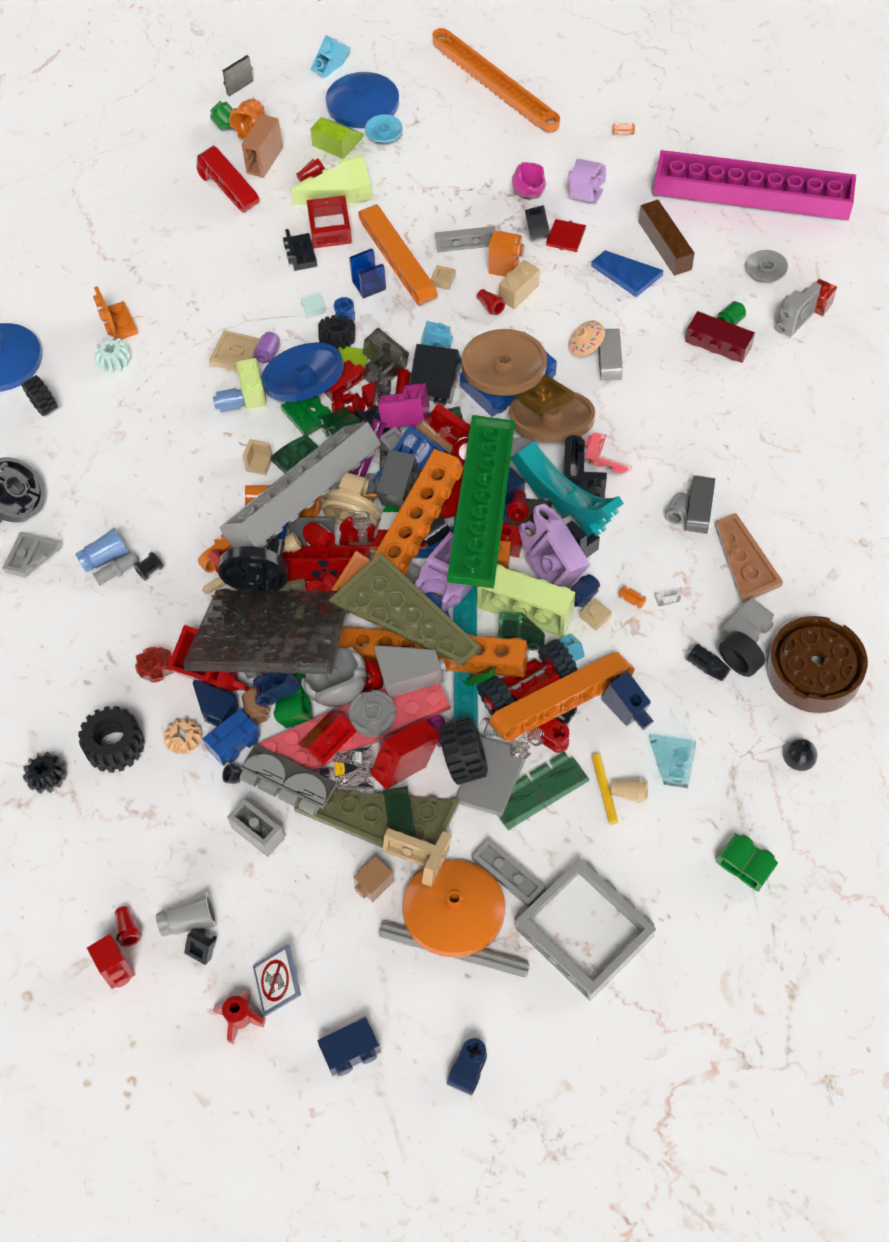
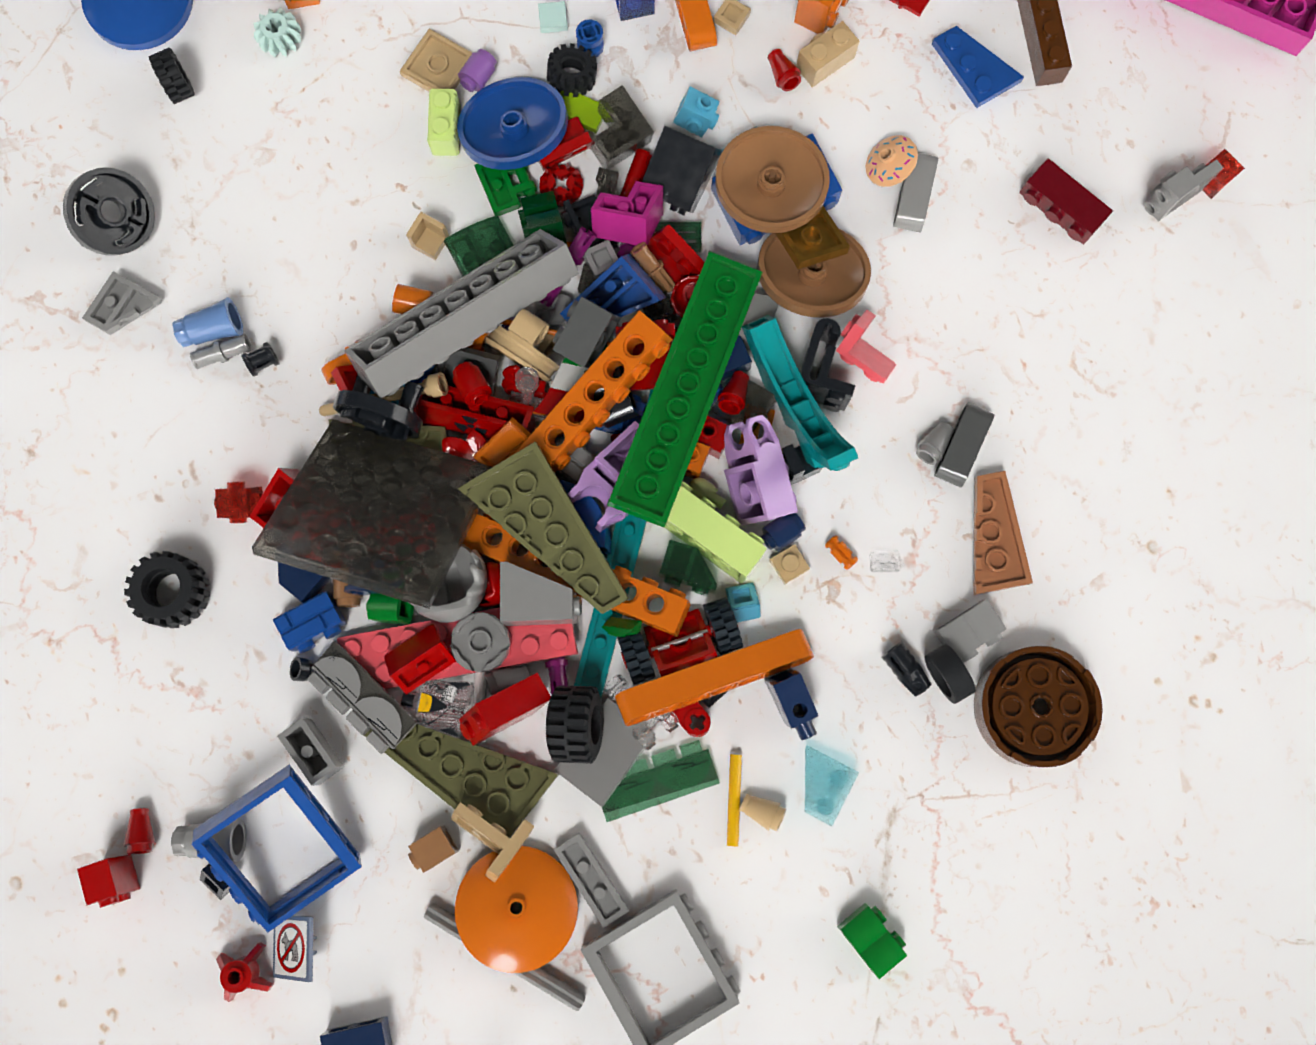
camera: 10 degrees right, 20 degrees up
(44, 772) = (70, 612): black gear -> none
(175, 743) = (265, 609): light nougat gear -> none
(228, 399) = (409, 139): medium blue brick -> none
(278, 871) = (240, 887): none -> blue window
(369, 394) = (589, 175): red slope -> none
(399, 810) = (482, 775): clear green tile -> none
(733, 313) = (1092, 170): green brick -> none
(767, 265) = (1168, 96): light grey dish -> none
(800, 754) = (979, 816): black brick -> none

